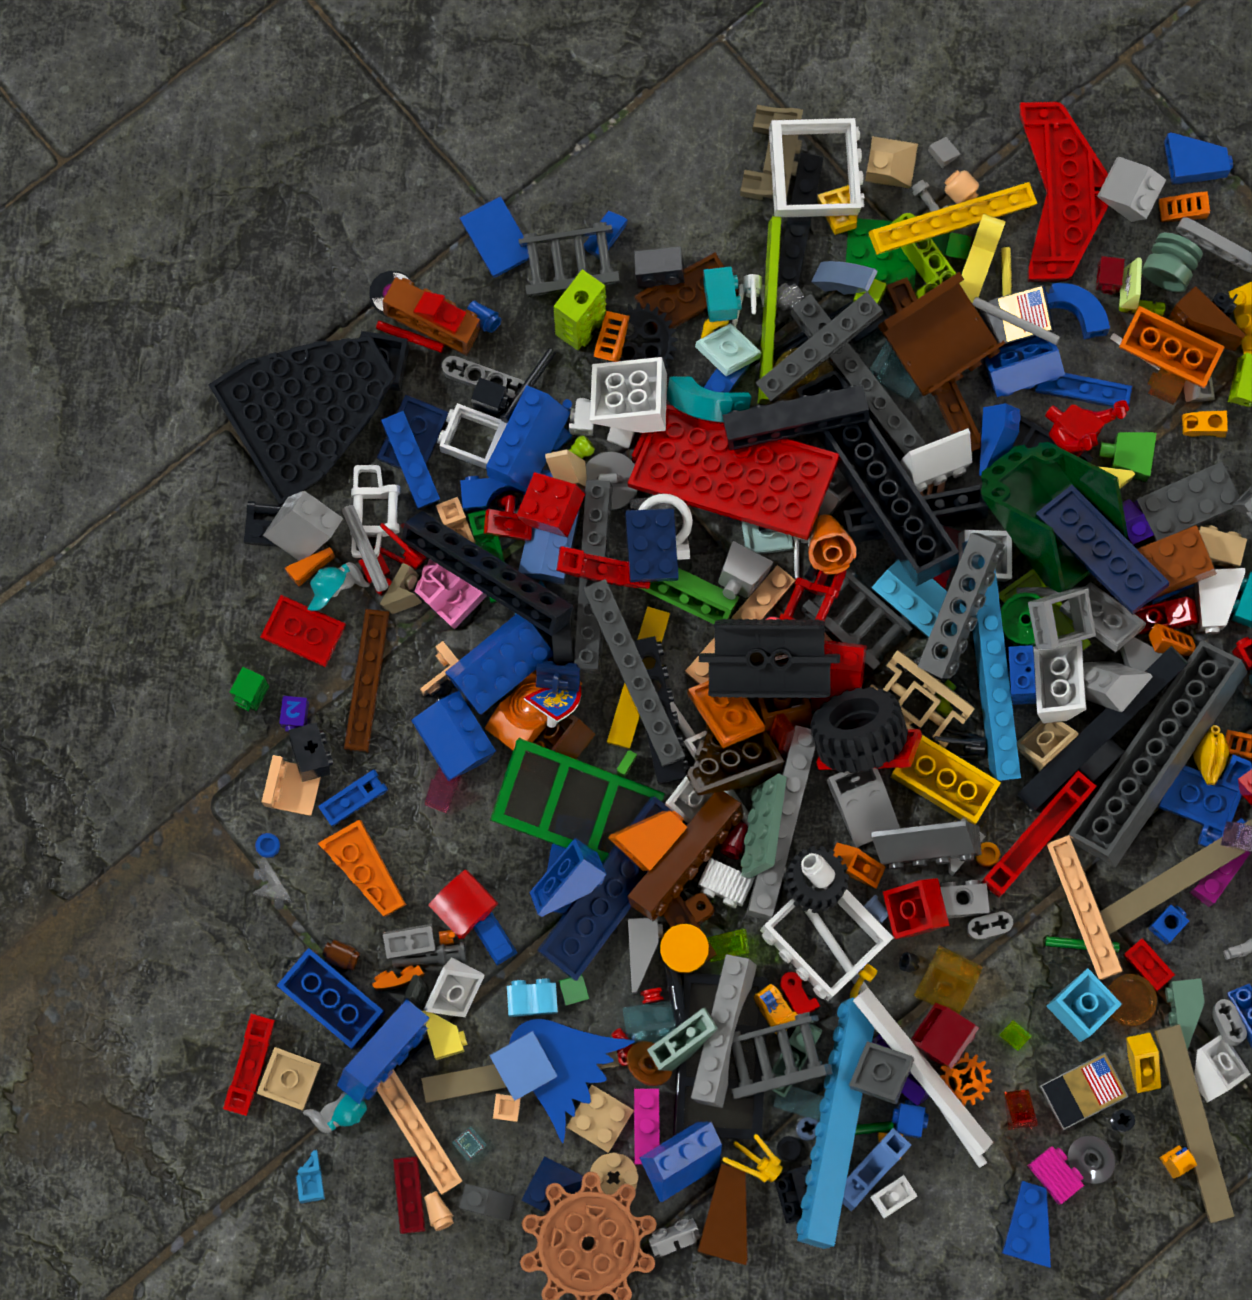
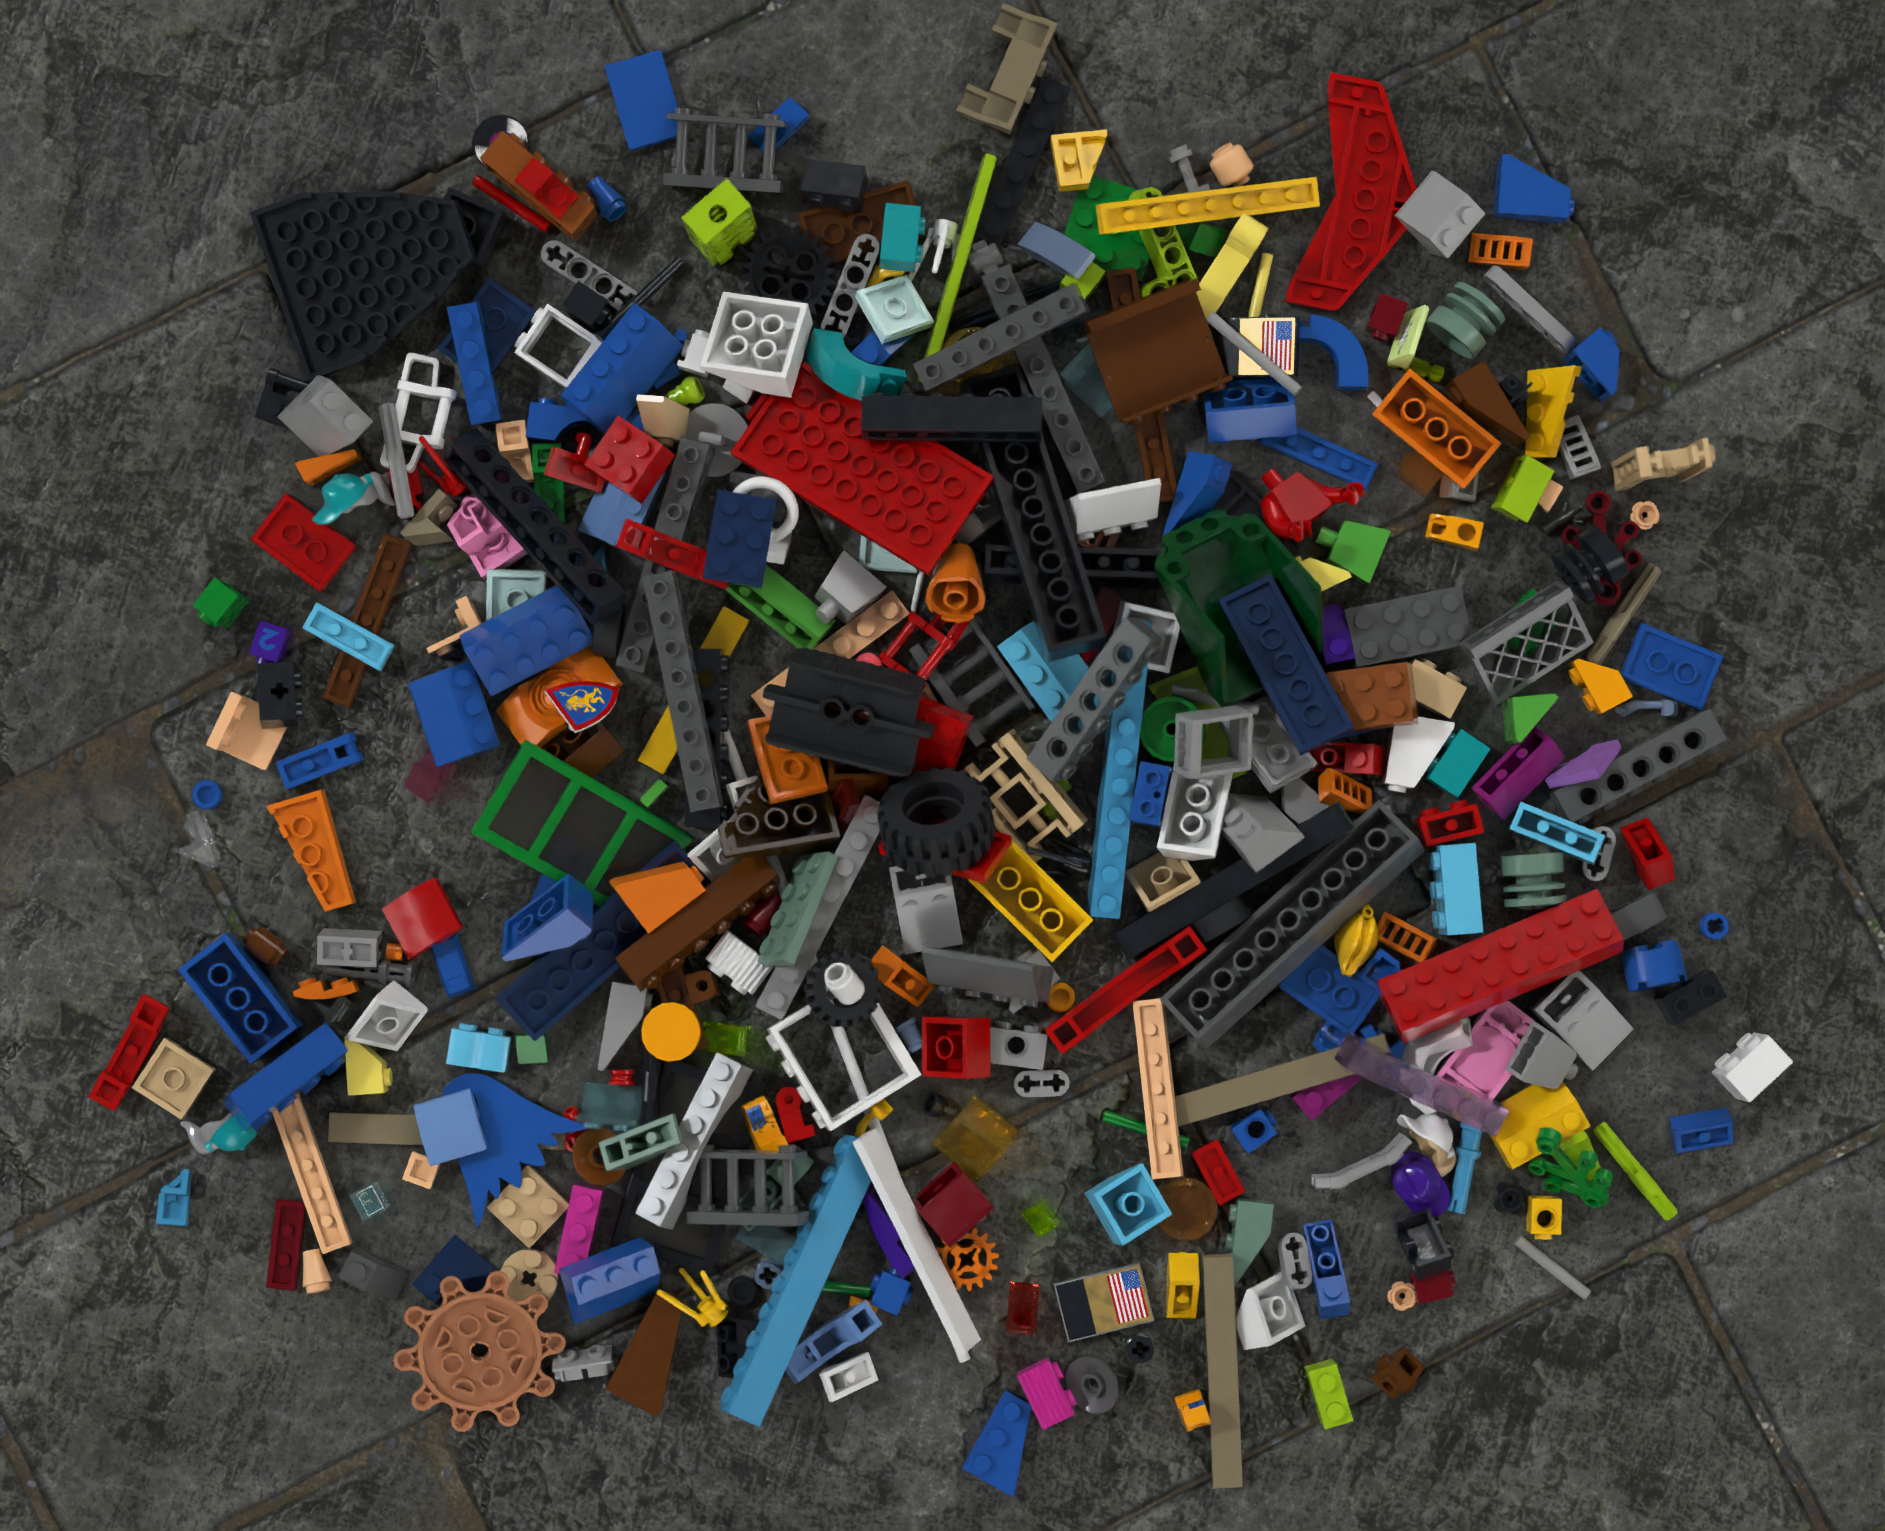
camera: 10 degrees right, 10 degrees up
(355, 694) = (348, 636): none -> medium azure tile
(476, 628) = (511, 587): none -> light aqua tile
(558, 677) = (591, 673): dark blue hips -> none
(620, 338) = (745, 258): orange slope -> none
(687, 342) = (849, 288): none -> light grey beam
(815, 126) = (1104, 100): white window -> none
(881, 1072) = (865, 1235): dark grey plate -> none
(891, 162) = (1153, 112): tan slope -> none
(943, 152) = (1221, 113): light grey slope -> none

